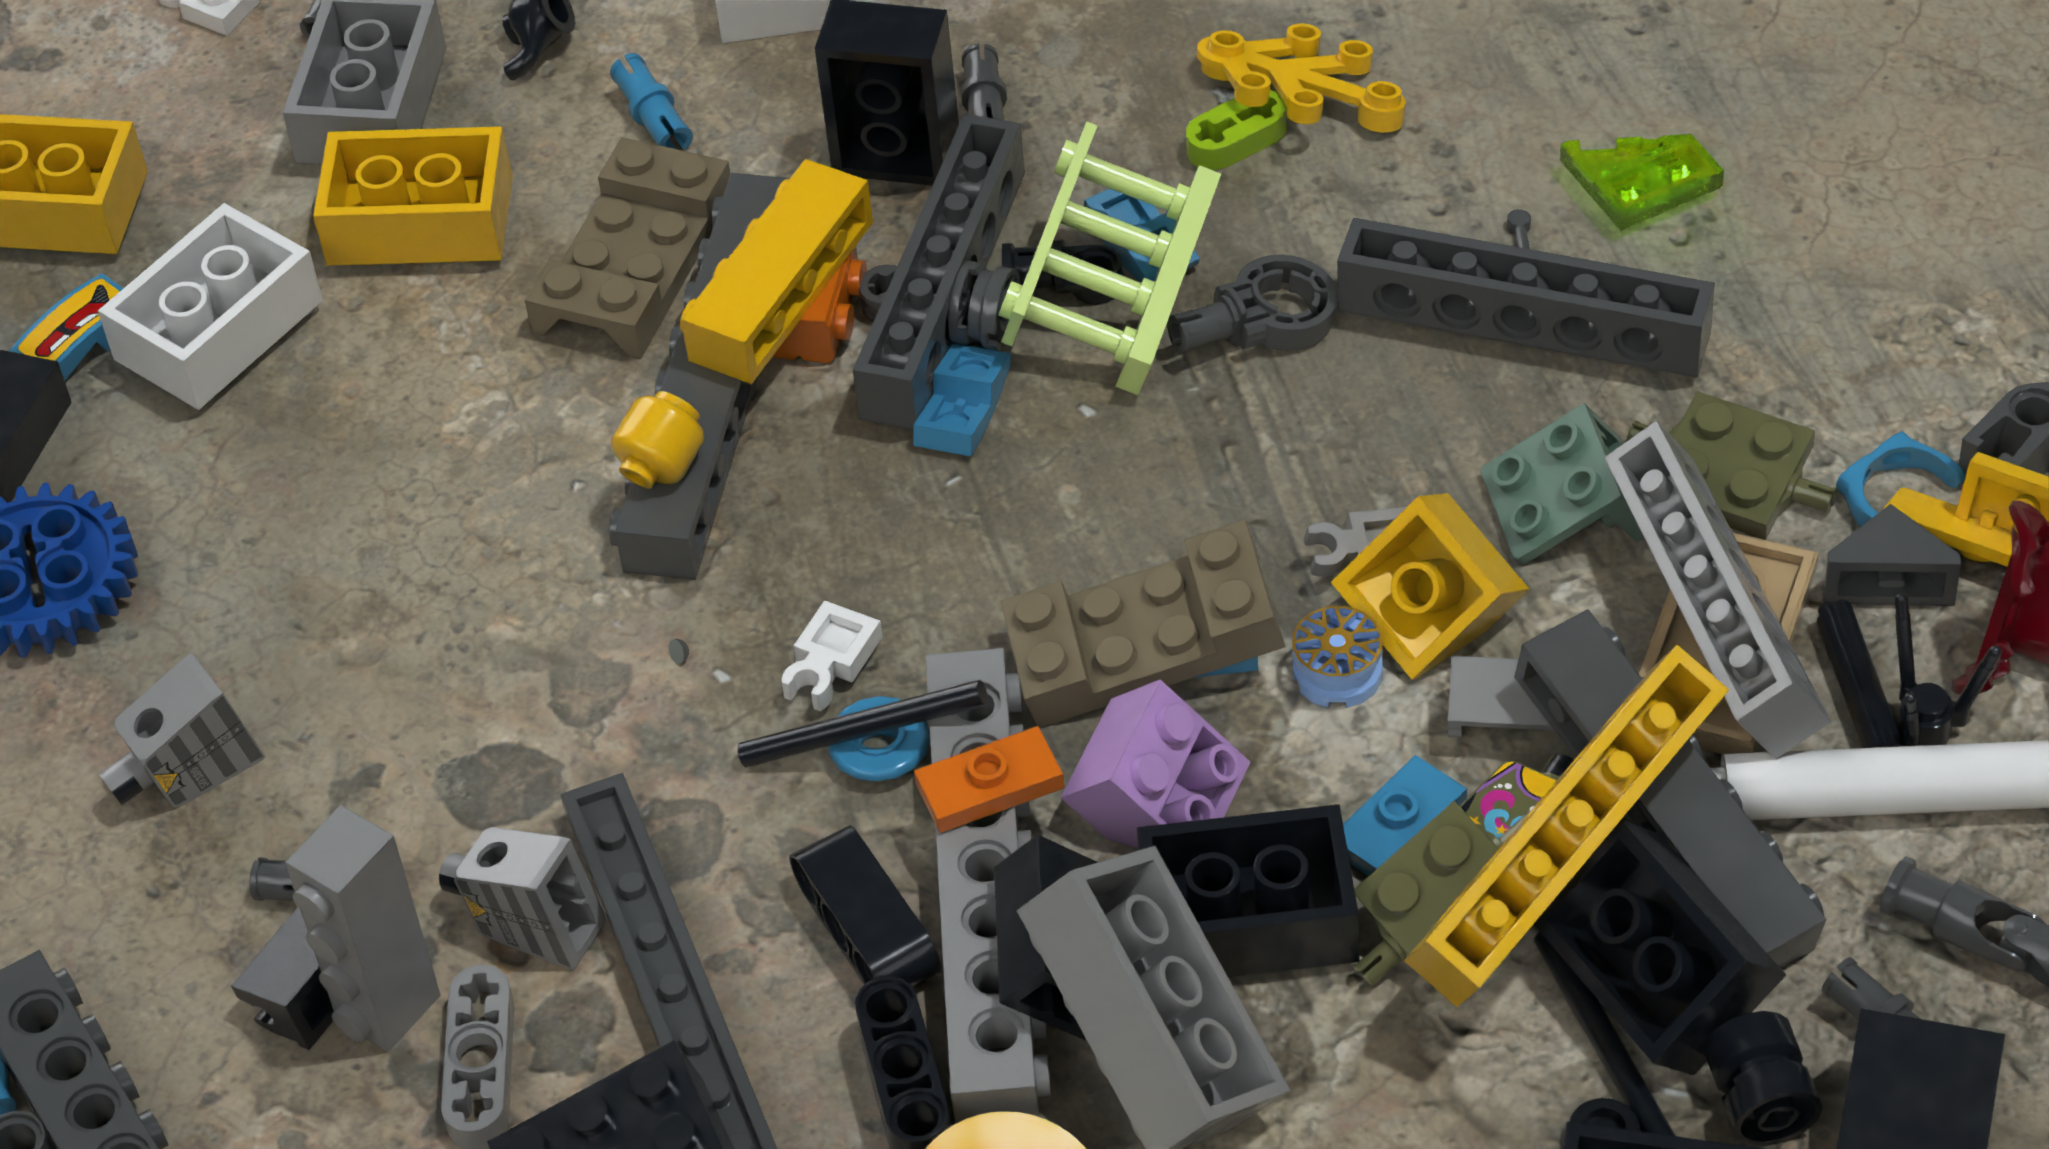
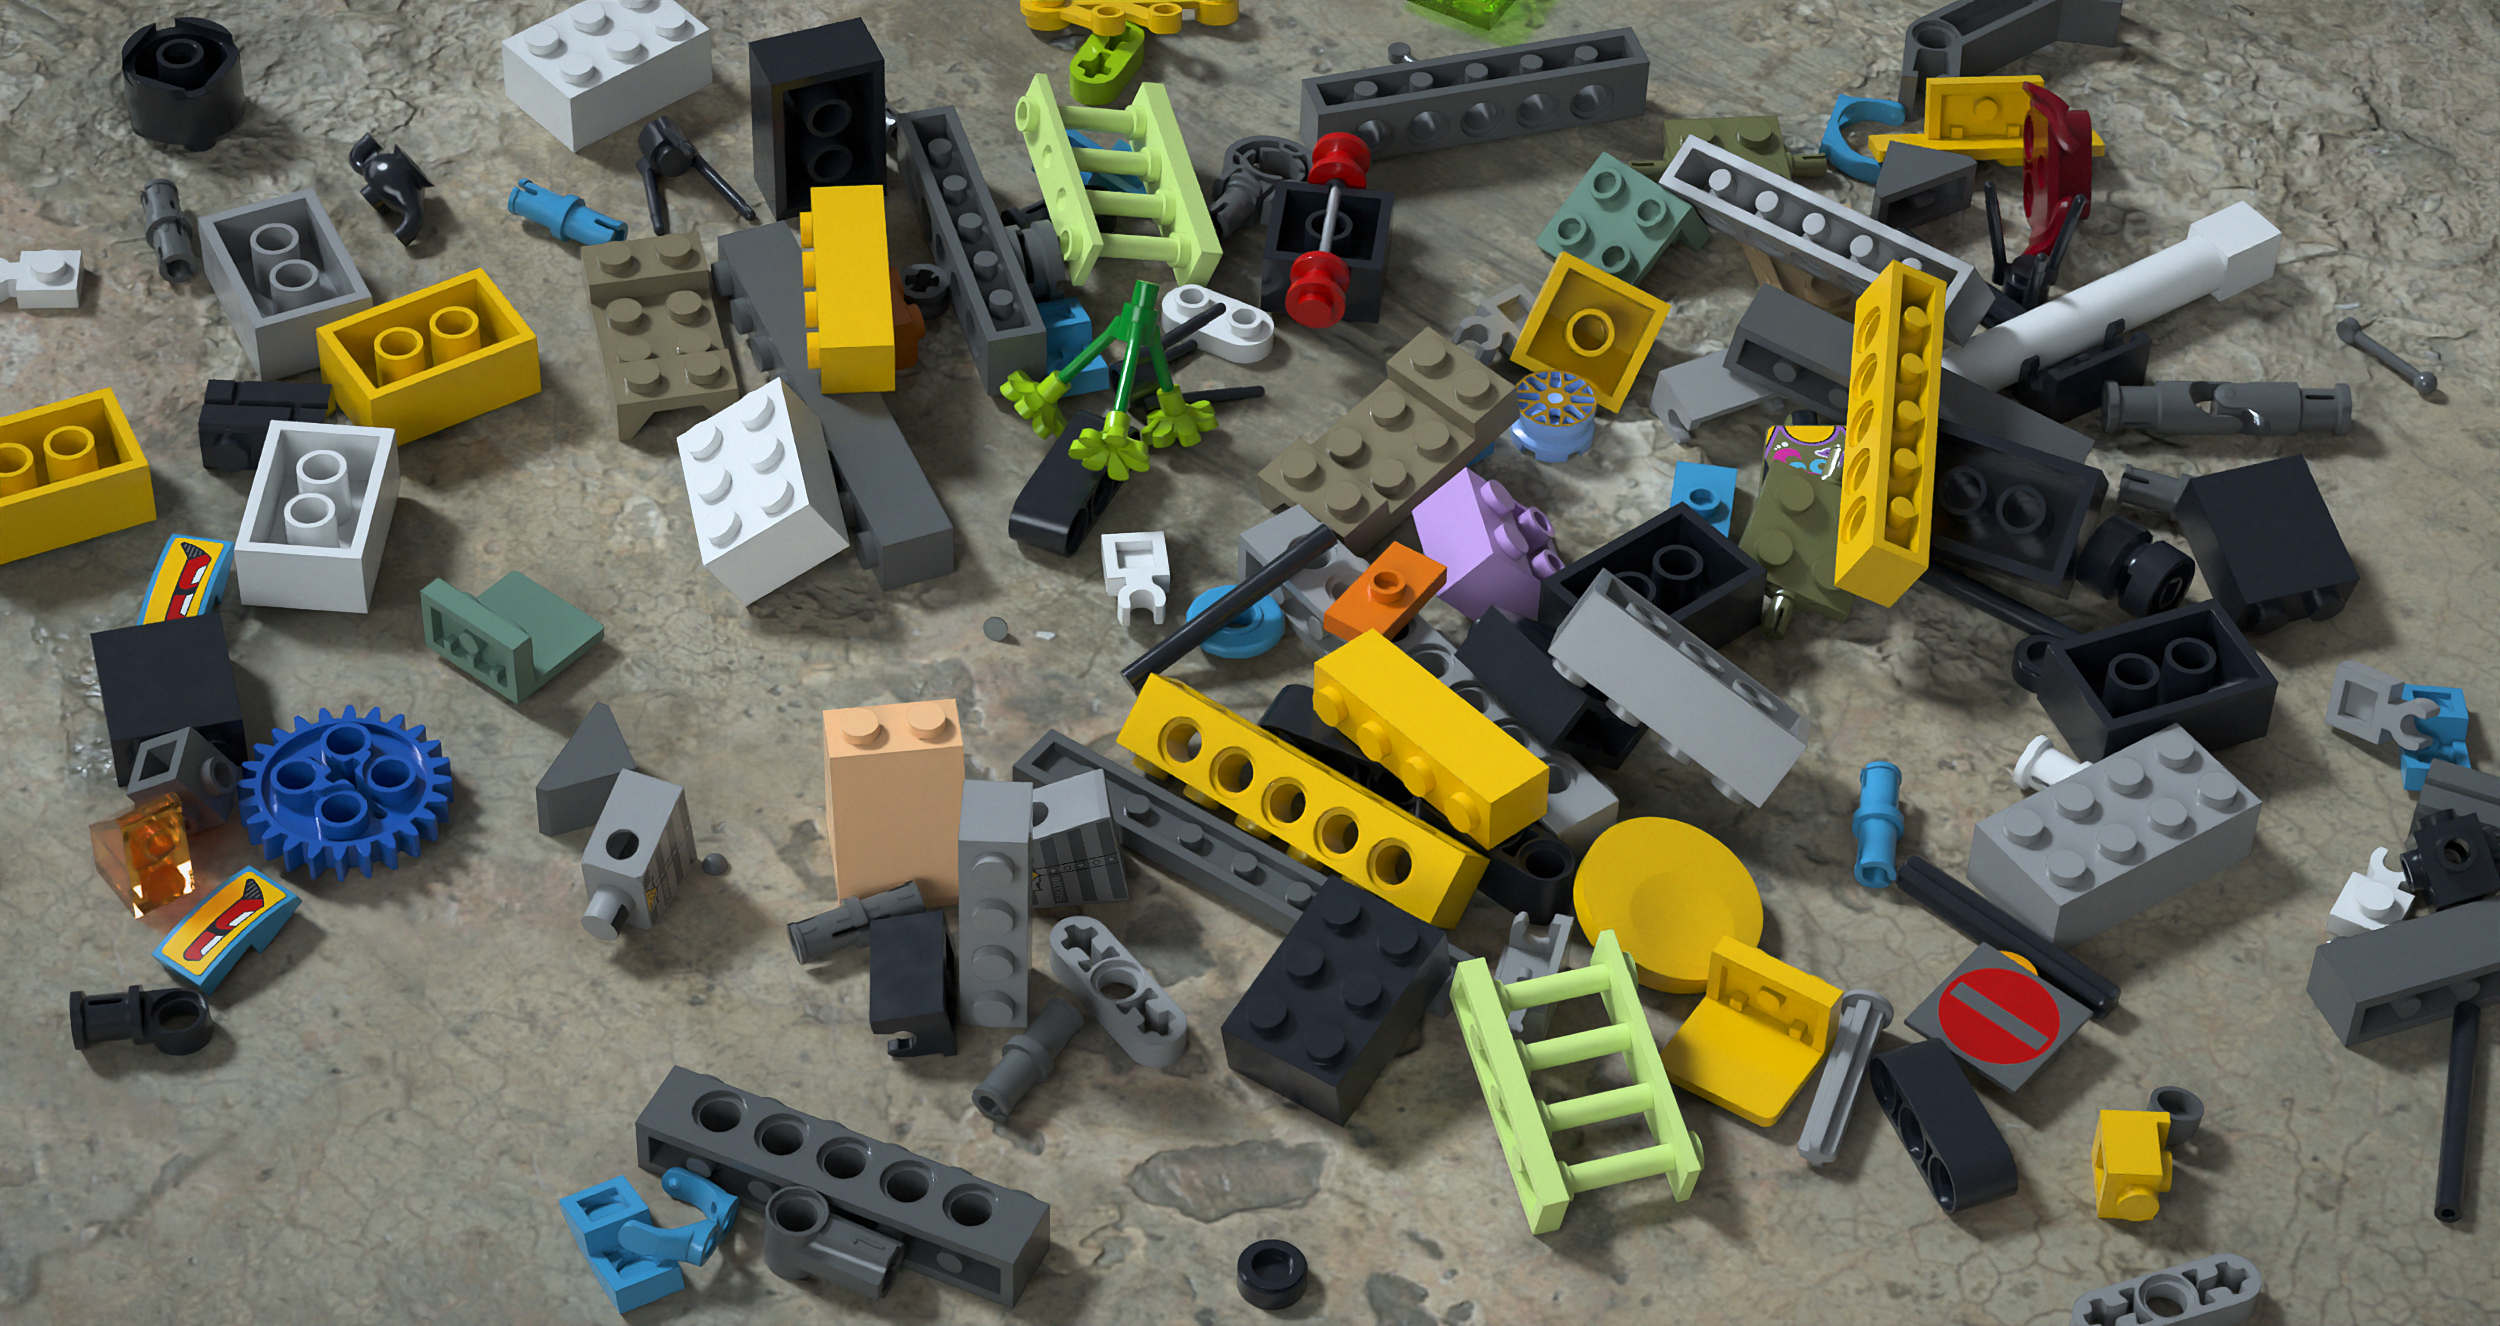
camera: 40 degrees left, 5 degrees down
(229, 637) = (583, 775): none -> dark grey slope
(256, 191) = (240, 413): none -> black brick
(272, 770) = (714, 864): none -> dark grey piece
(281, 480) = (509, 634): none -> sand green bracket
(343, 1086) = (1027, 1059): none -> dark grey pin
(417, 773) = (894, 798): none -> light nougat slope
(554, 435) = (762, 492): none -> white brick
(657, 439) = (872, 452): yellow head -> none
(766, 952) = (1171, 713): none -> yellow brick
(781, 77) = (671, 155): none -> black plant
(850, 539) = (1063, 496): none -> black beam
(884, 454) = (1112, 445): none -> lime plant
(894, 945) = (1430, 739): none -> yellow brick
(1000, 454) = (1146, 381): none -> black plant
(1108, 422) = (1238, 335): none -> white plate
(1256, 393) = (1329, 240): none -> black brick
(1873, 845) = (2077, 383): none -> black hinge

